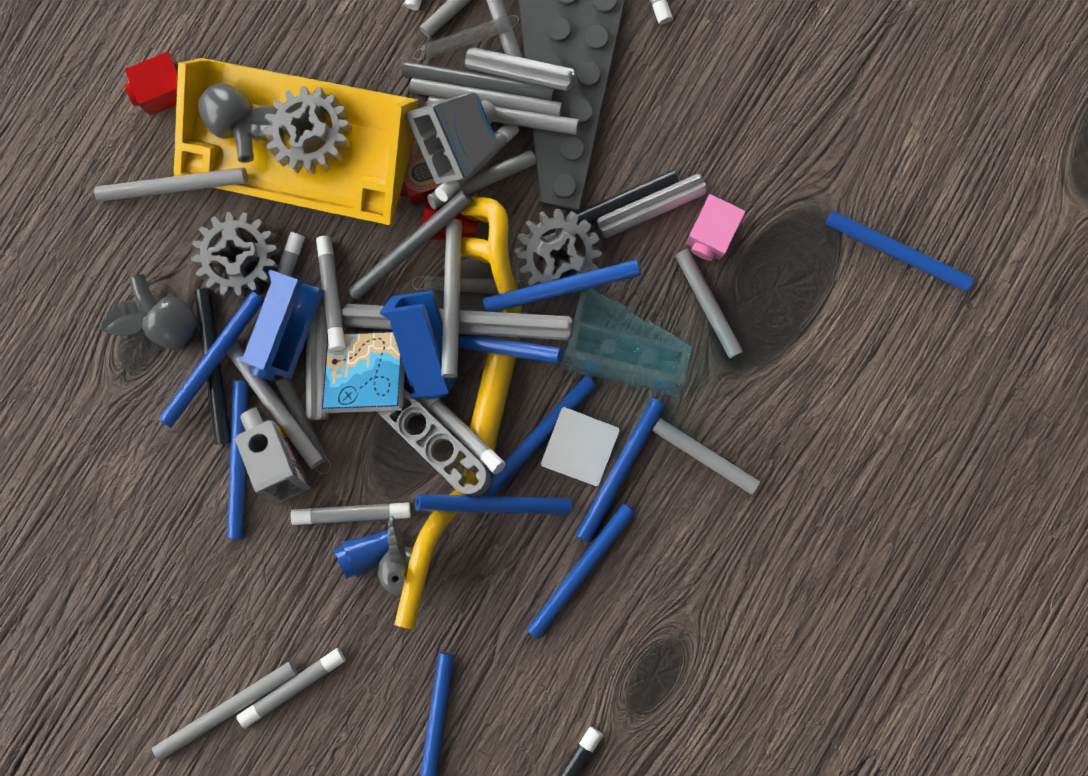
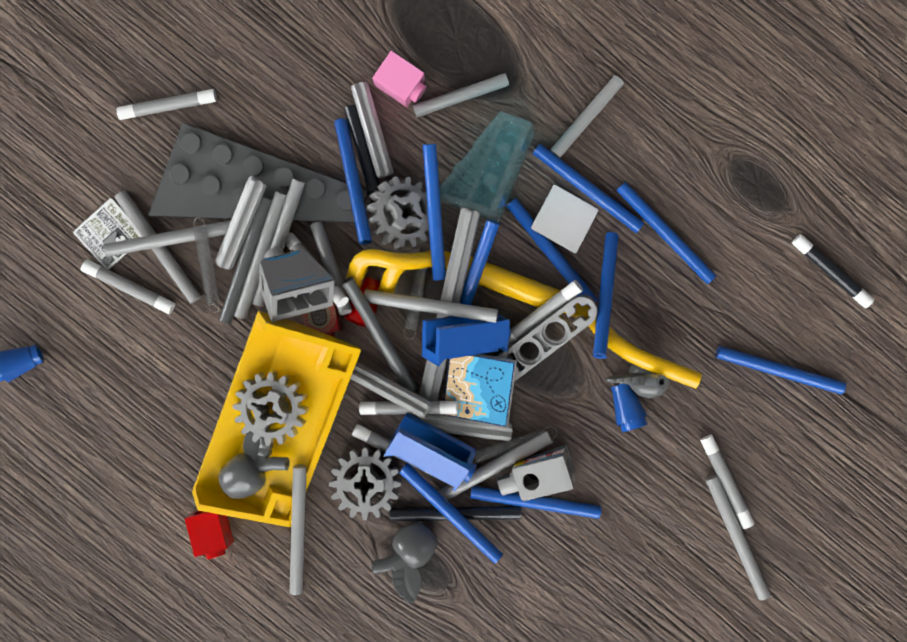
camera: 85 degrees left, 5 degrees up
(347, 267) = (390, 390): none -> light grey axle
(350, 513) = (592, 415): light grey bar -> none
(586, 190) = (353, 182): none -> blue piece

